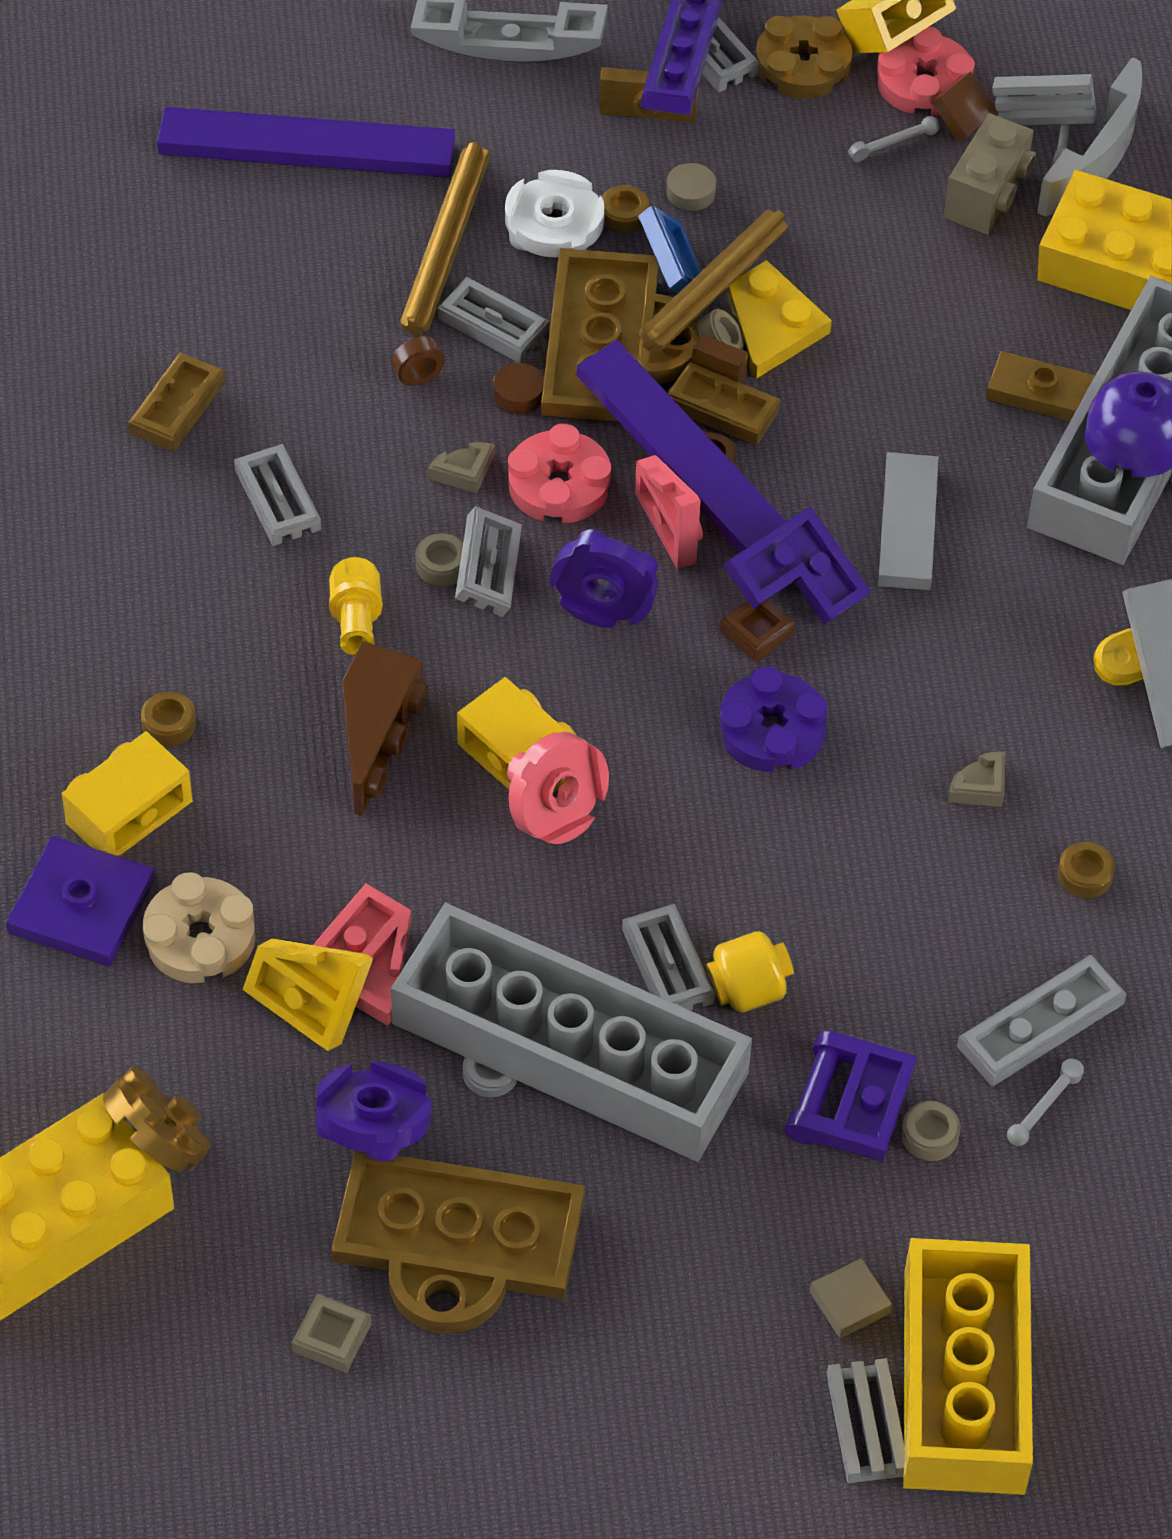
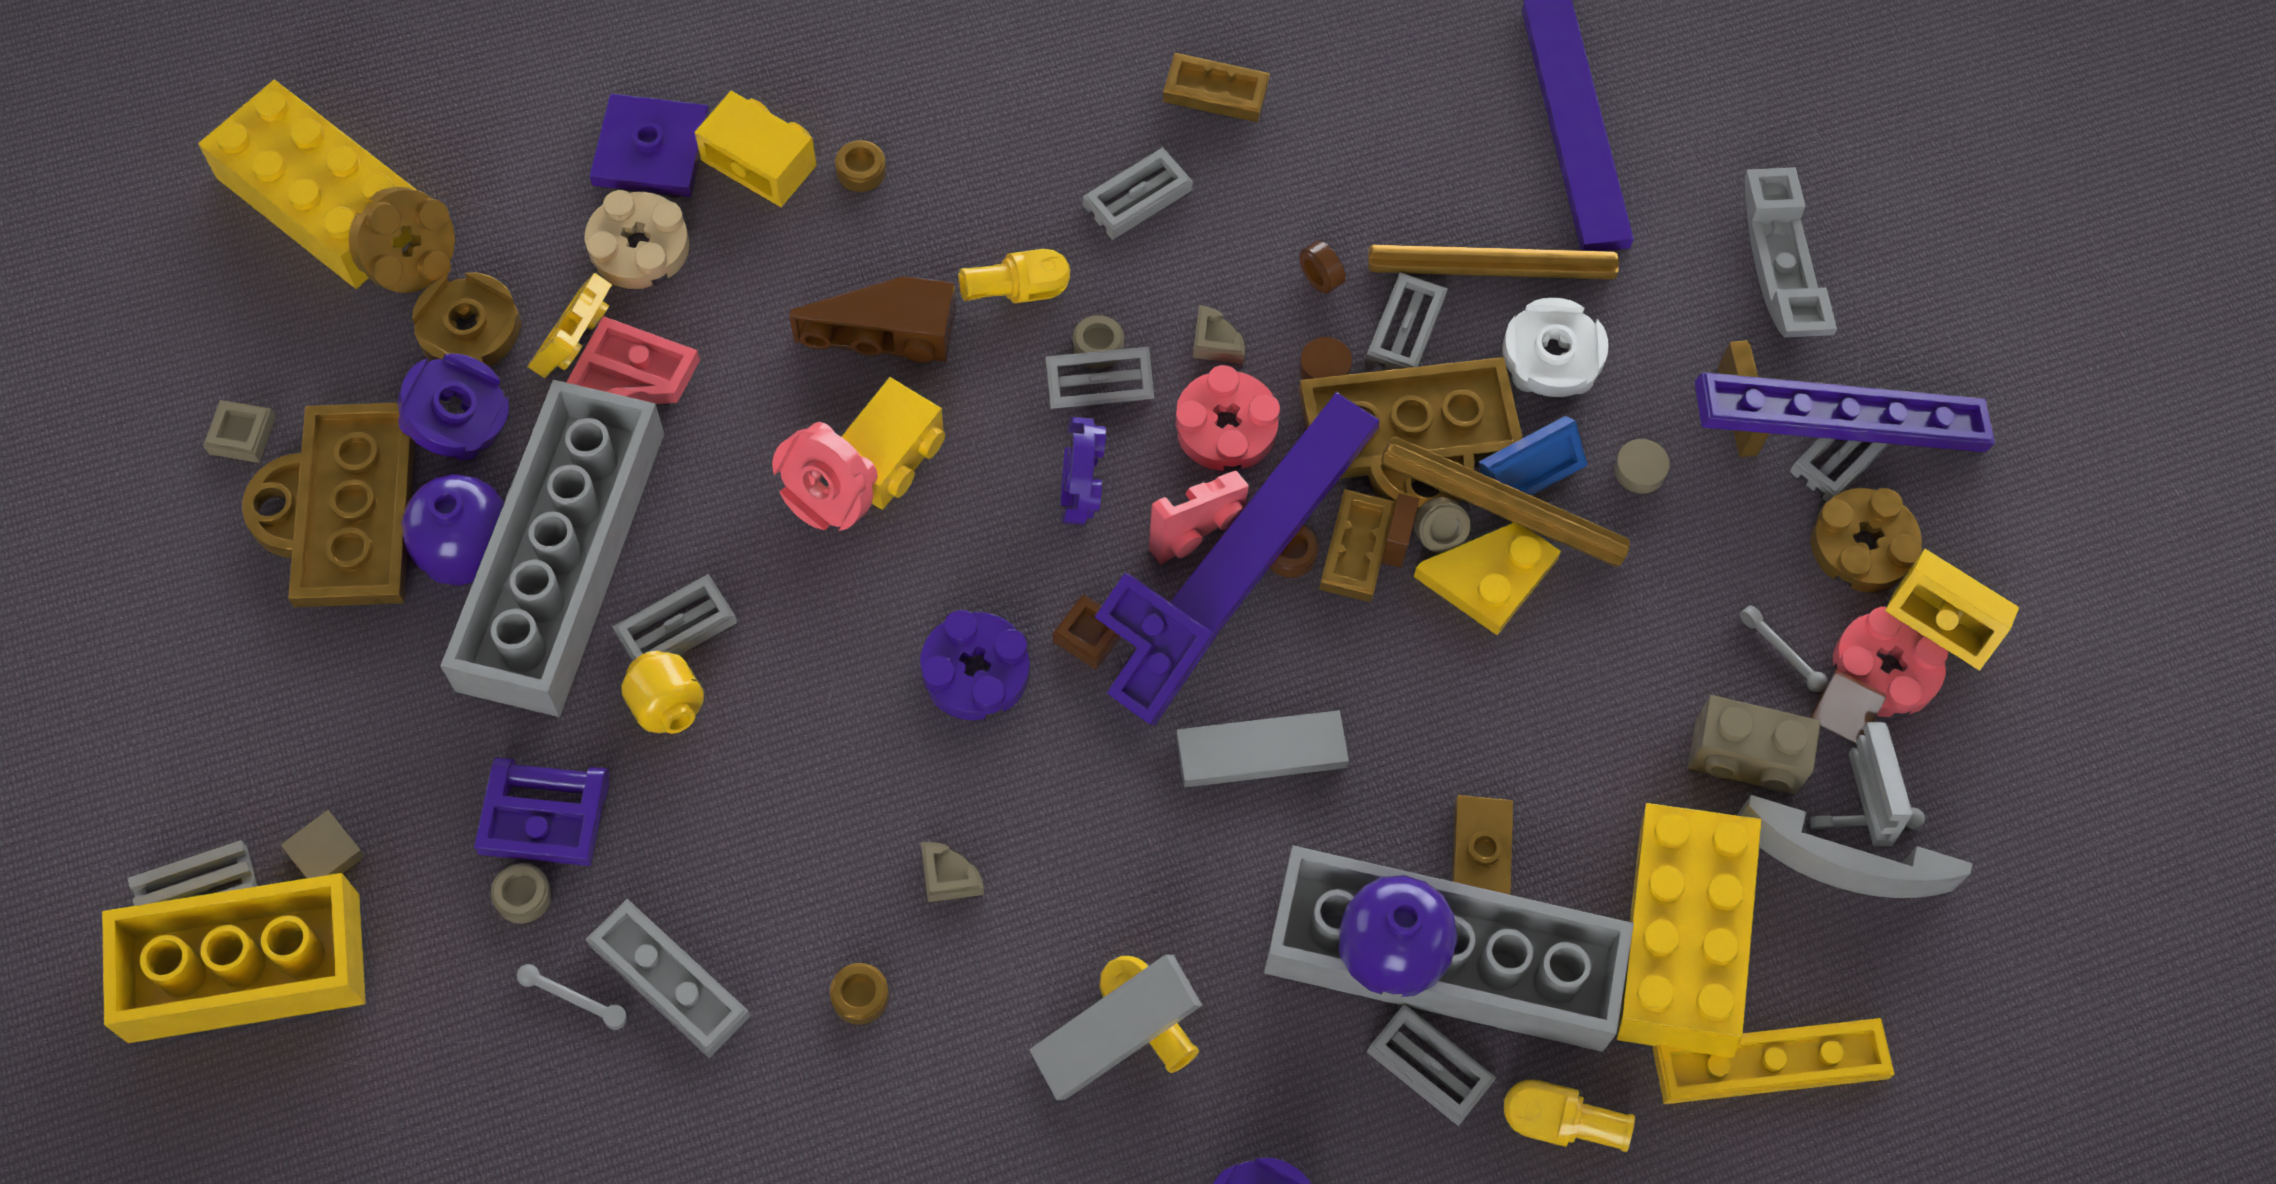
camera: 75 degrees right, 10 degrees up
(268, 1124) = (478, 295): none -> pearl gold plate
(514, 1128) = (450, 527): none -> dark purple cylinder
(623, 207) = (1593, 411): pearl gold tile -> none

